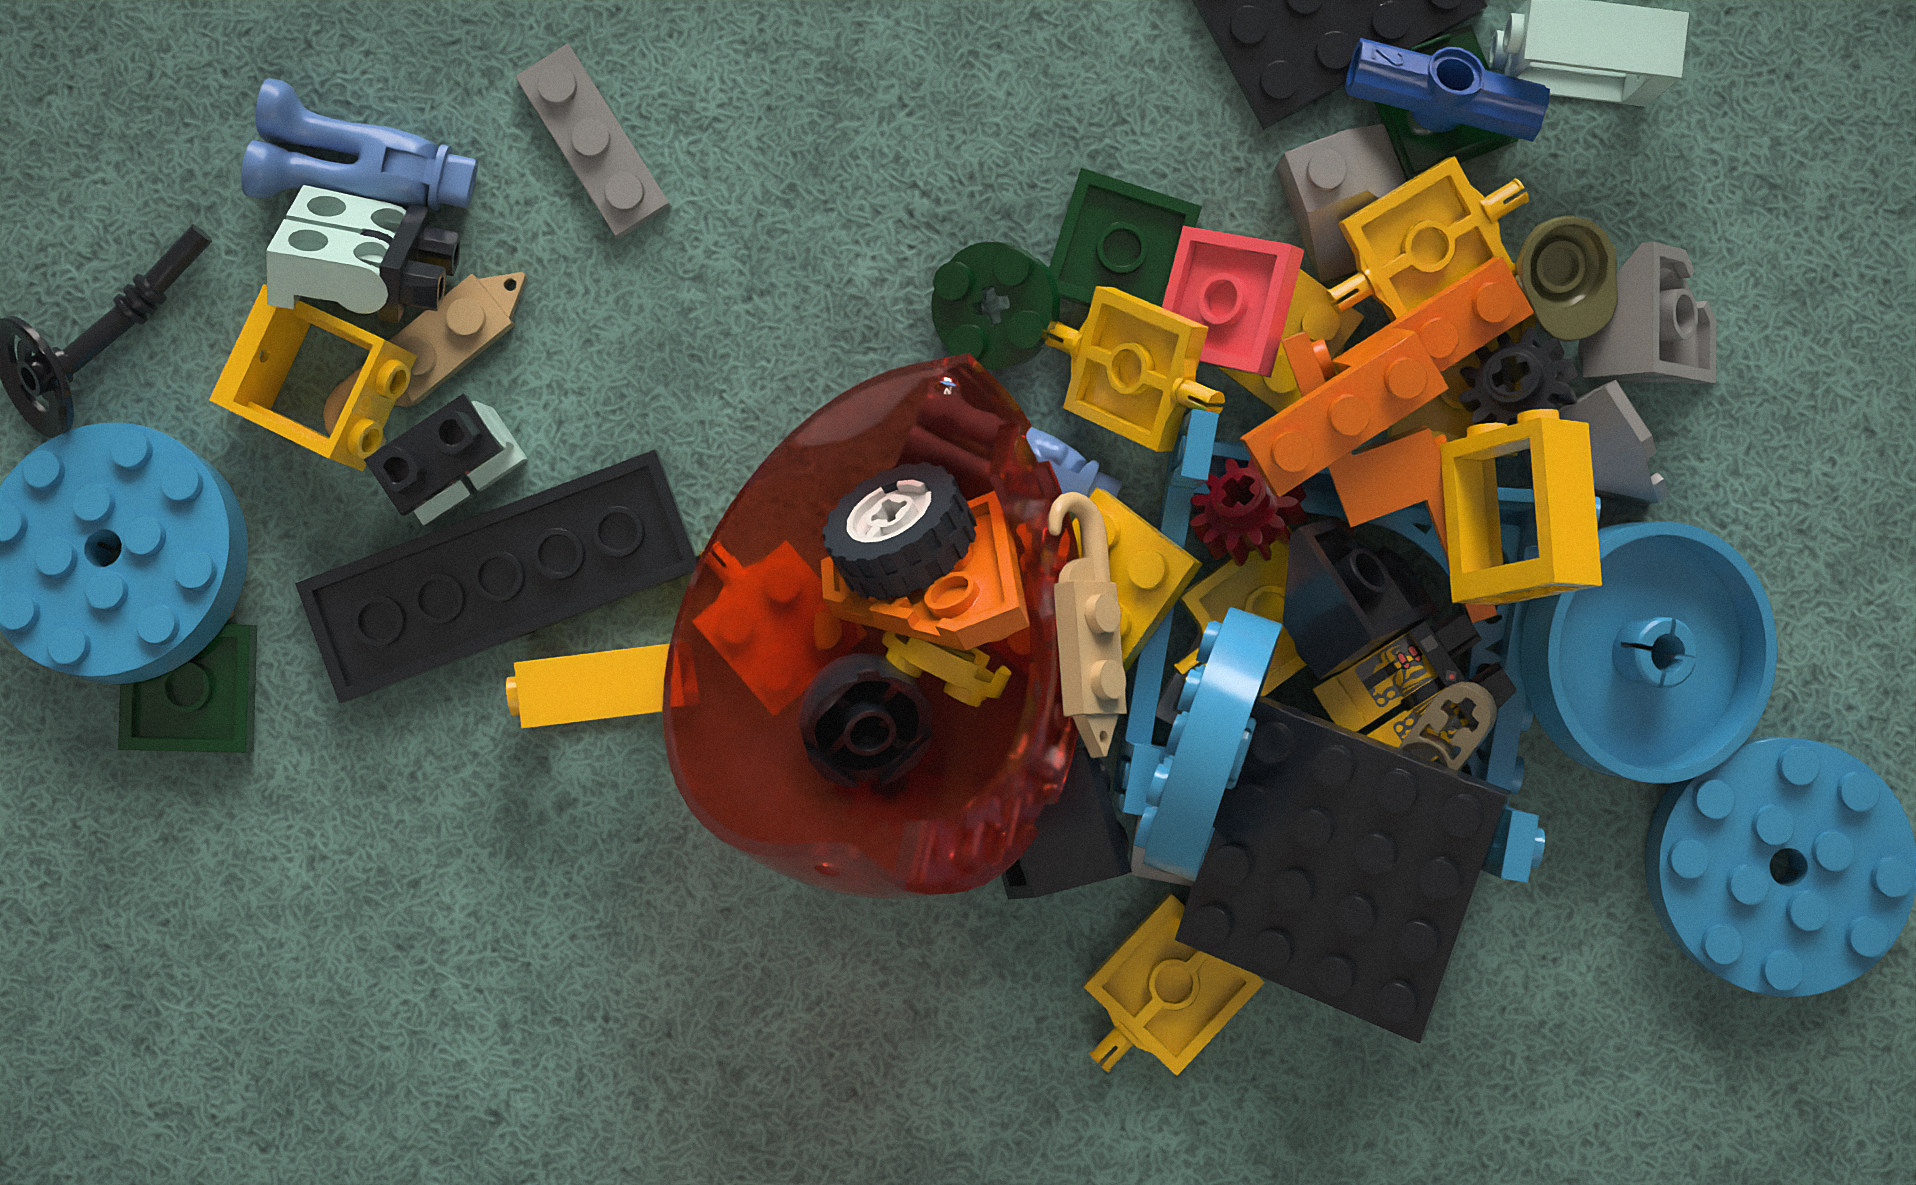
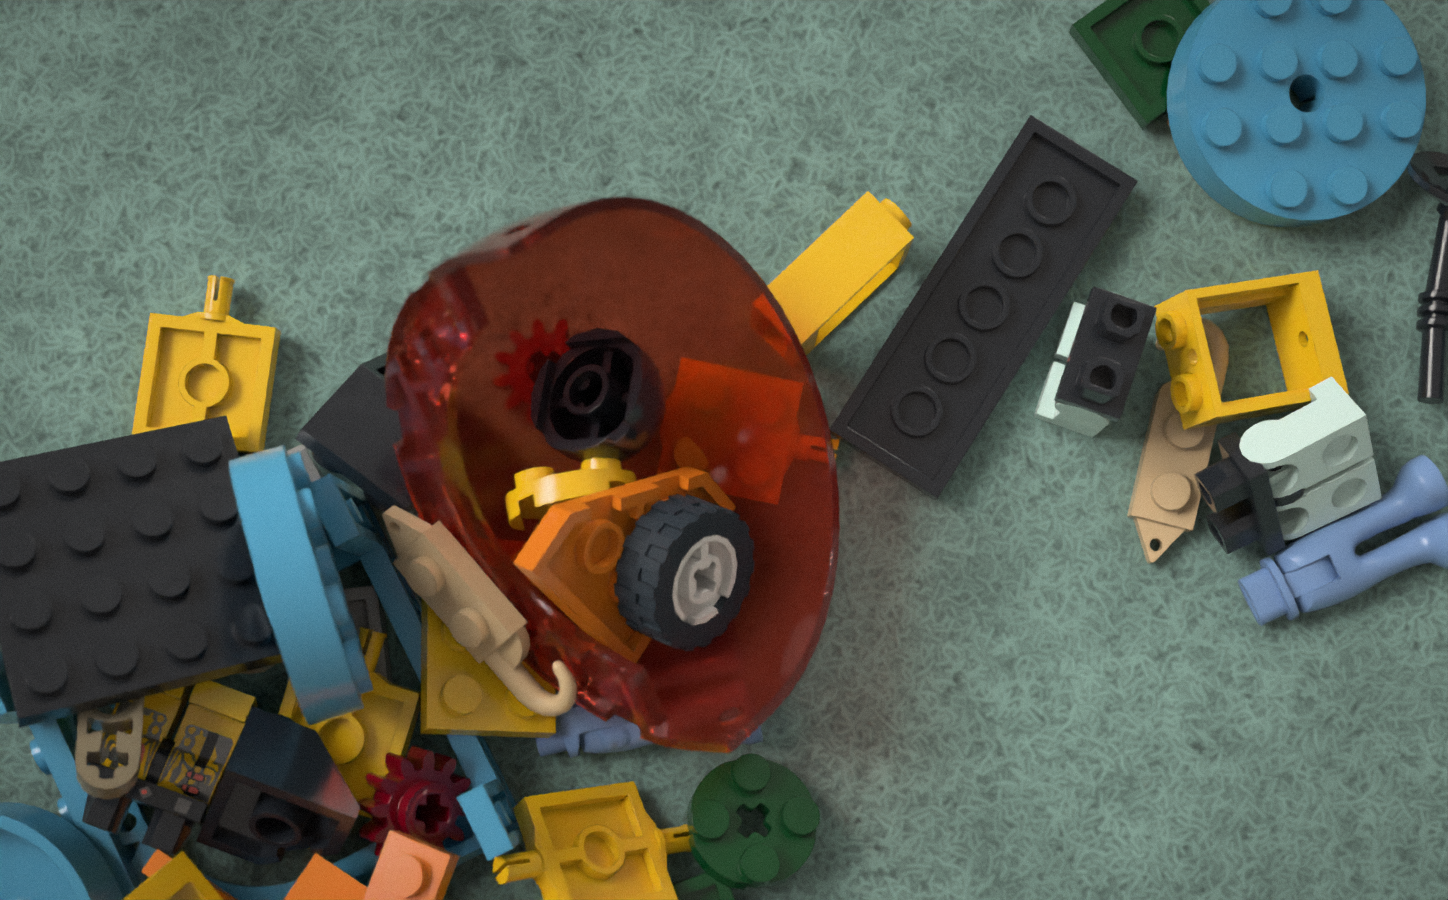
camera: 145 degrees right, 5 degrees down
(593, 141) = (1181, 712): light grey plate -> none

